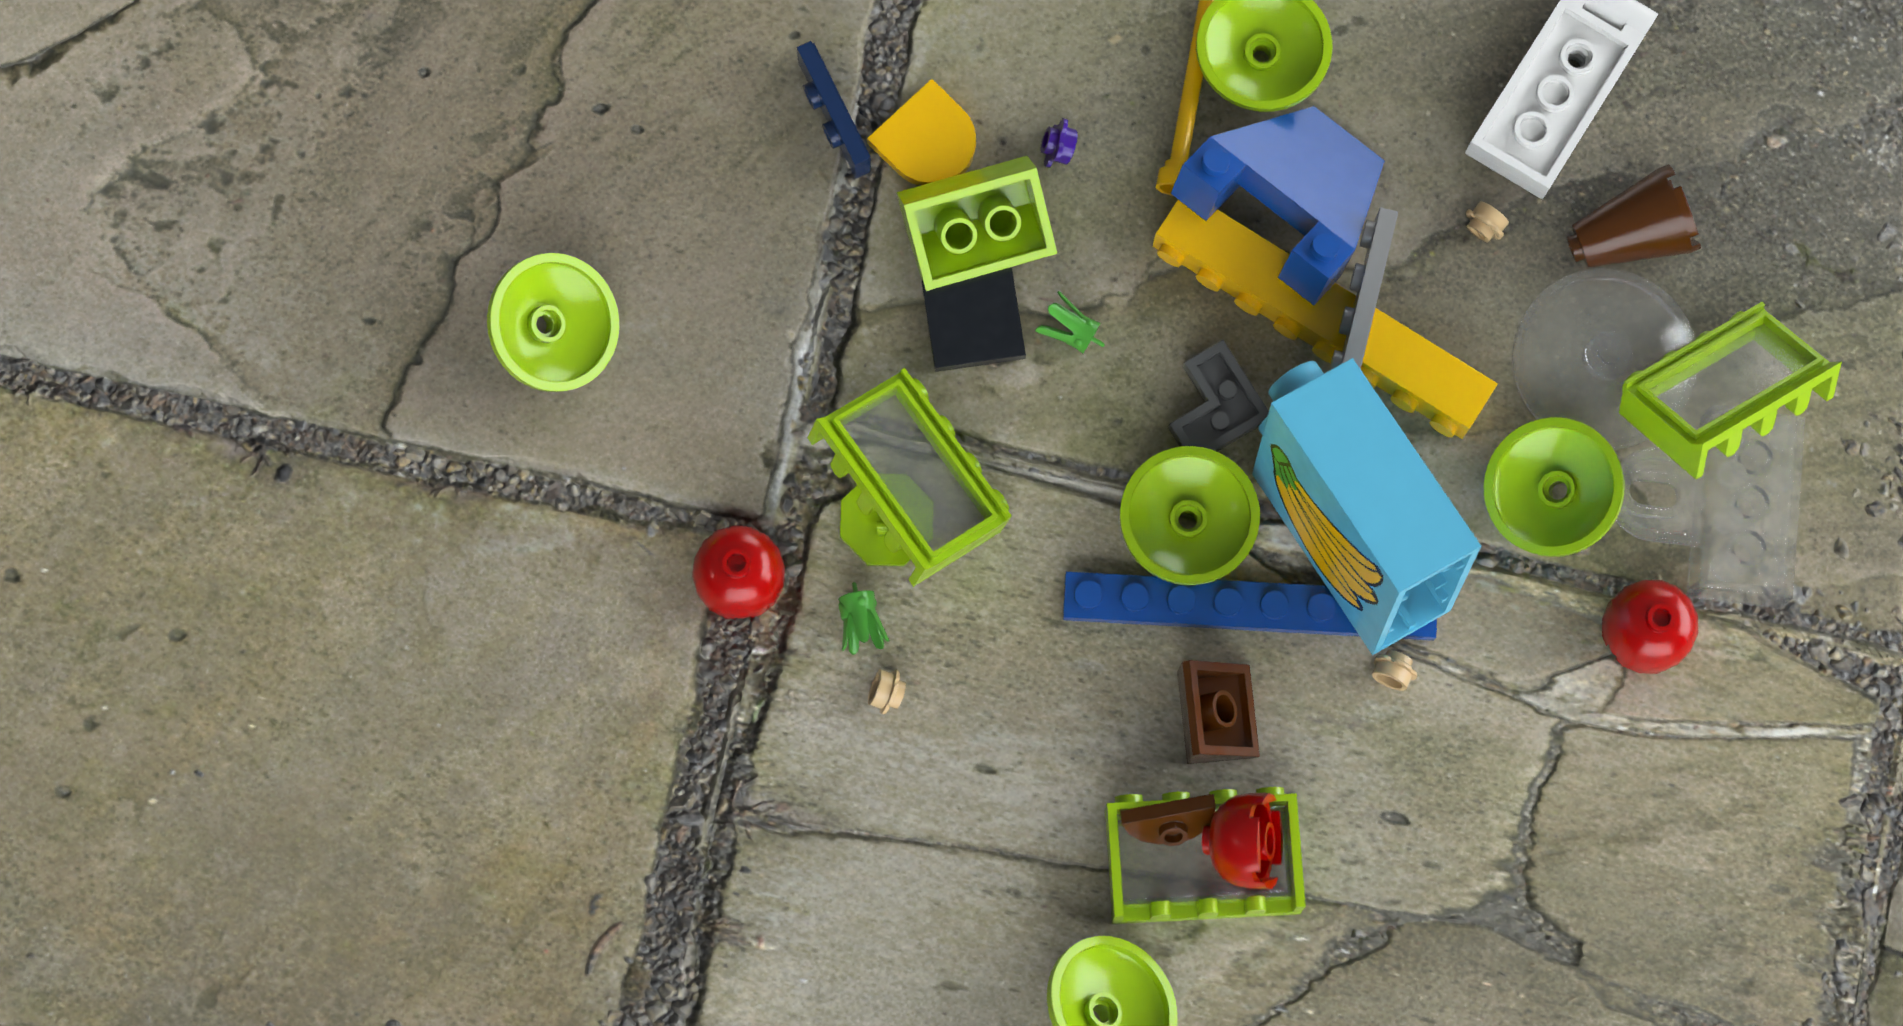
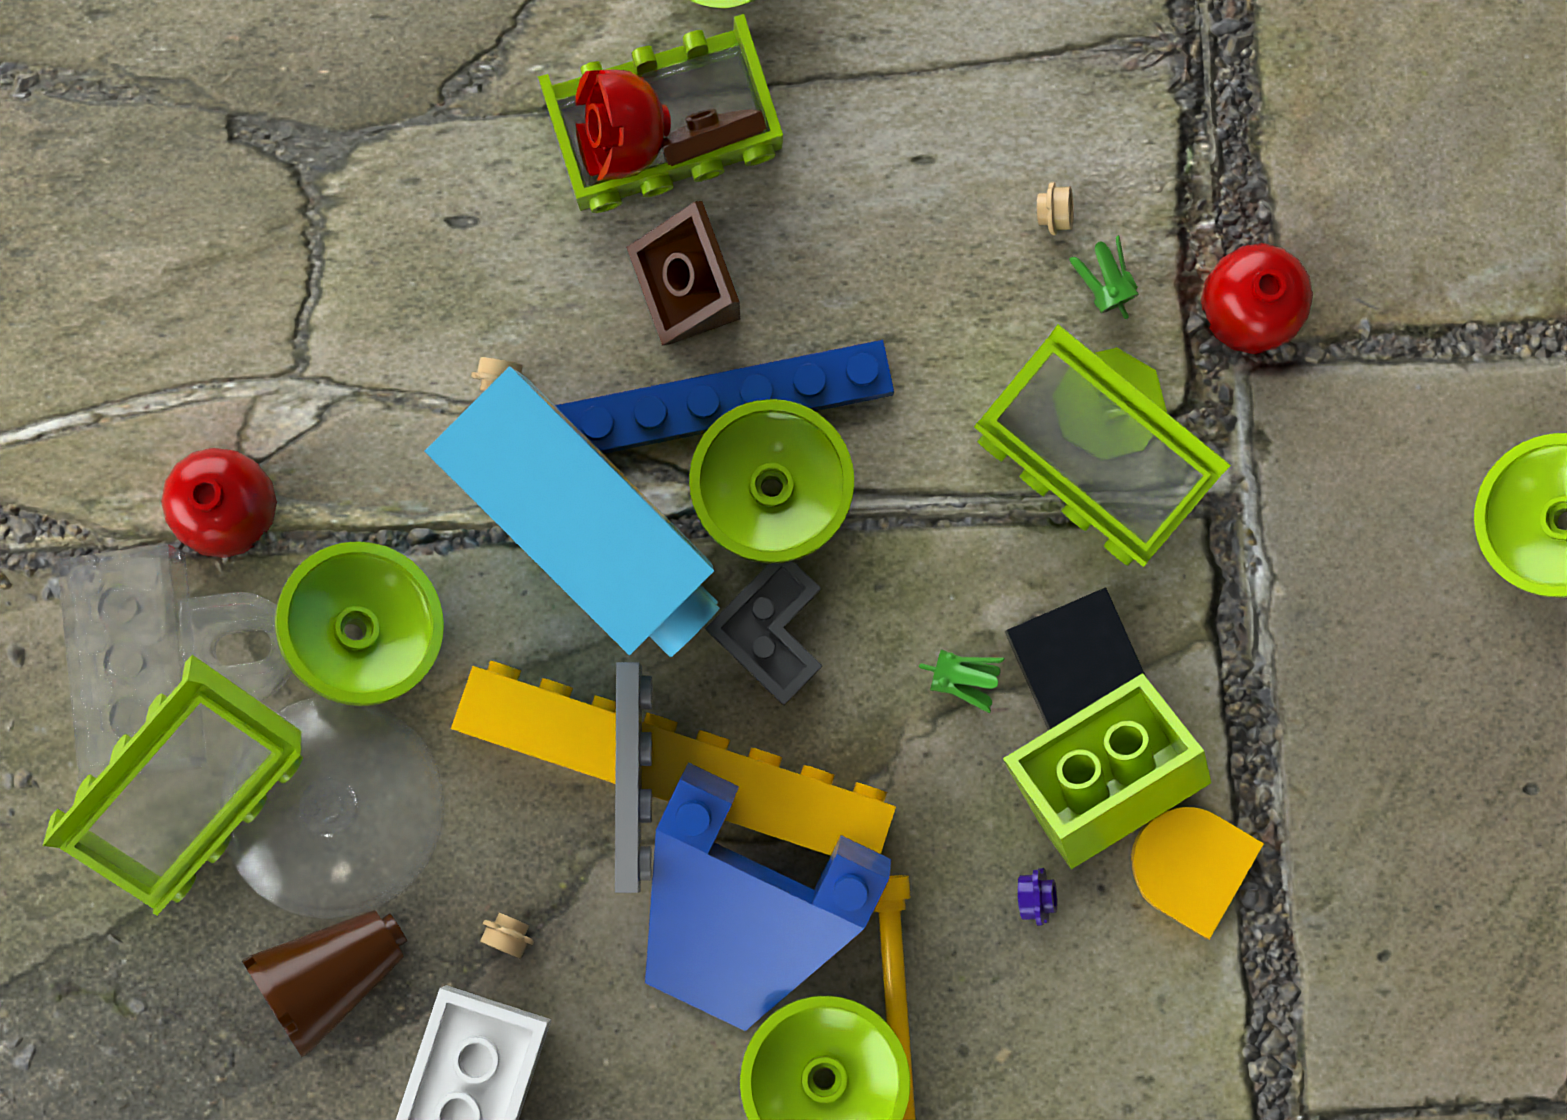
camera: 165 degrees right, 5 degrees up
(839, 126) = (1330, 882): dark blue plate -> none

